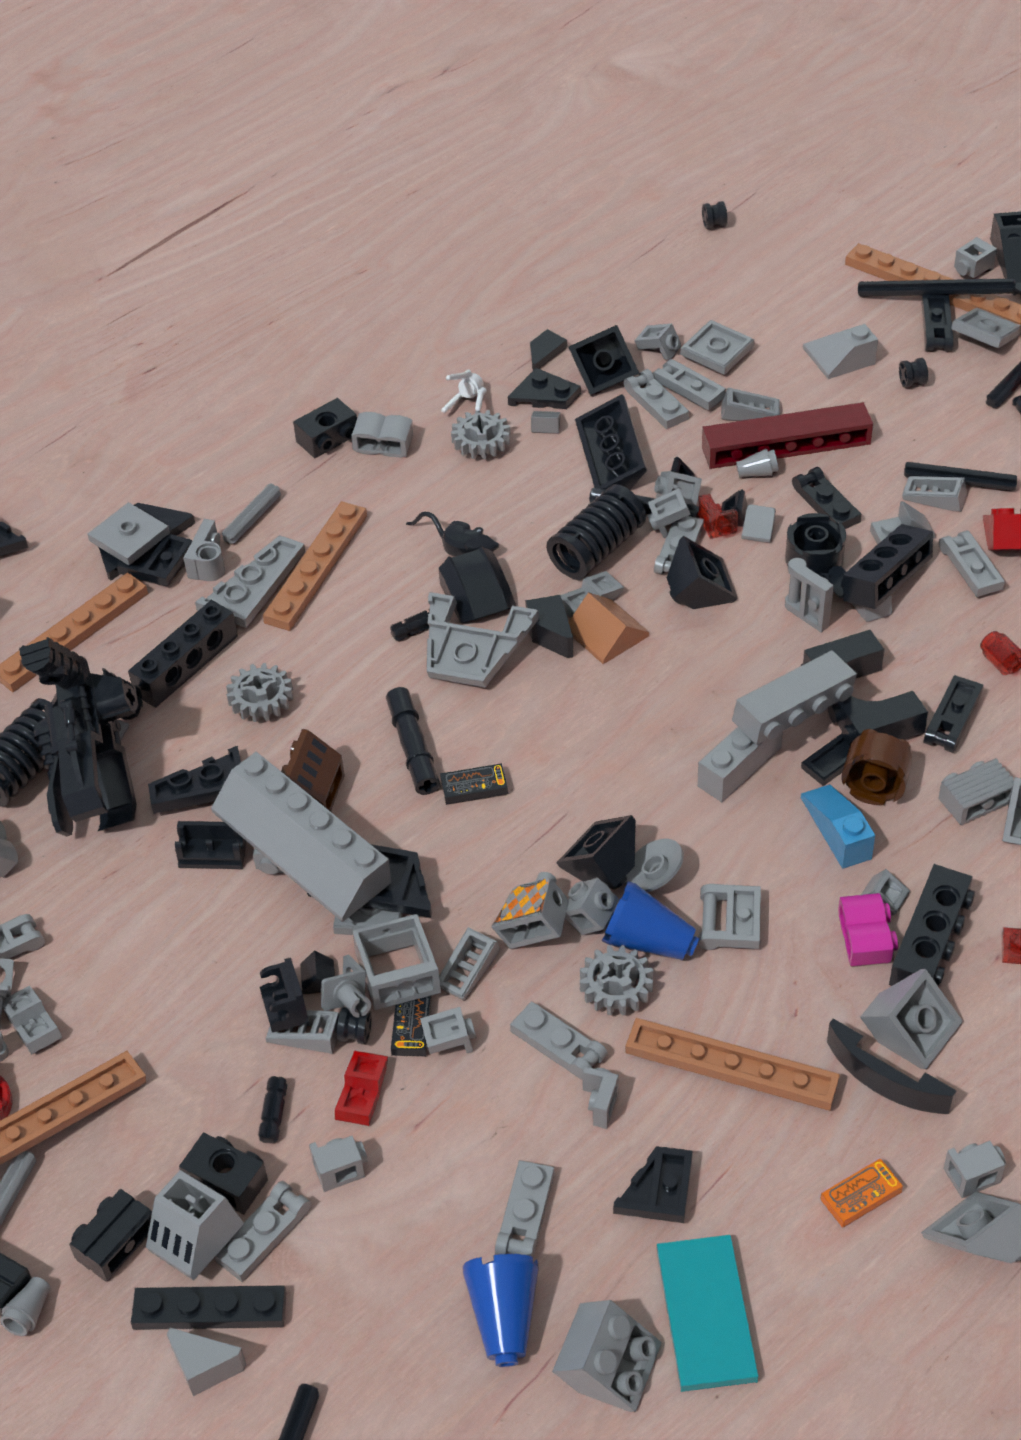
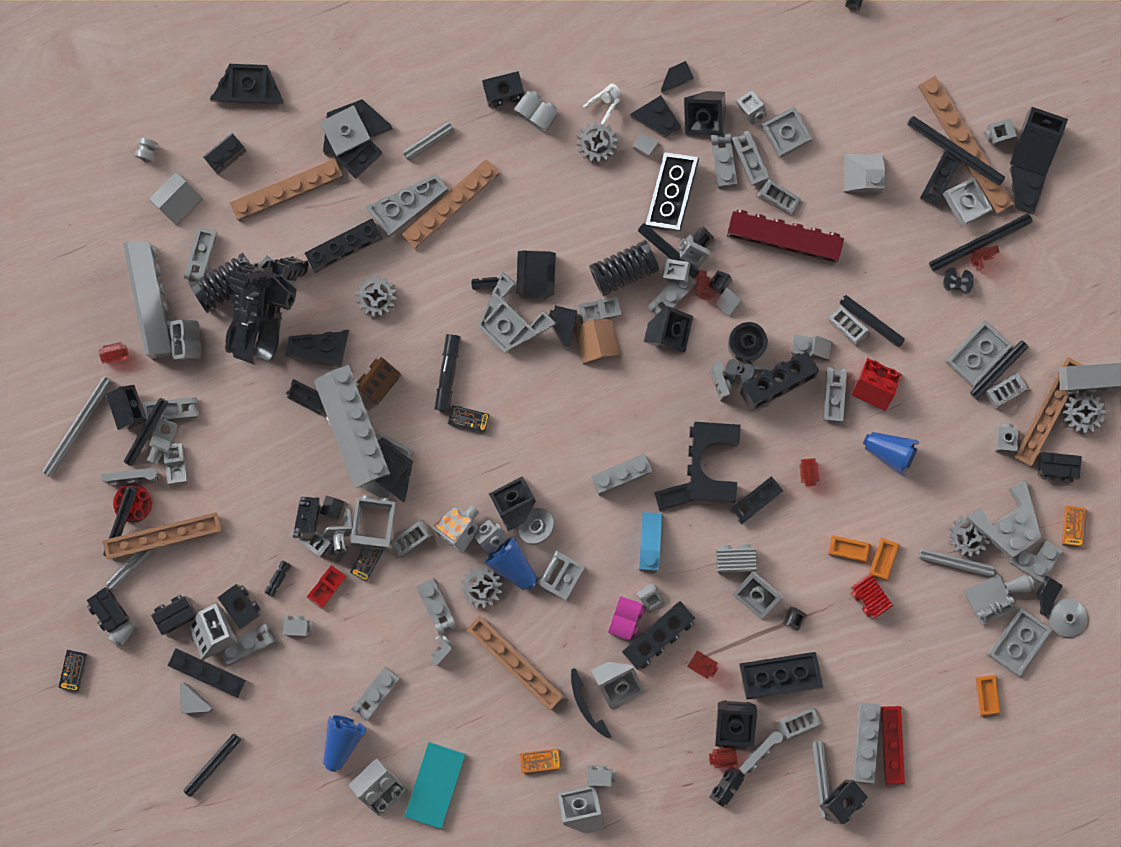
camera: 20 degrees right, 35 degrees up
(204, 555) = (392, 155): light grey plate -> none
(448, 1030) = (381, 578): light grey bracket -> none
(458, 536) = (542, 230): black animal -> none
(659, 1187) = (444, 713): black wing -> none
(759, 464) = (754, 252): light grey cone -> none
(794, 697) = (663, 463): light grey brick -> none
(826, 498) = (780, 300): black plate -> none
(877, 767) = (688, 523): reddish brown brick -> none
(913, 372) = (896, 219): black wheel -> none

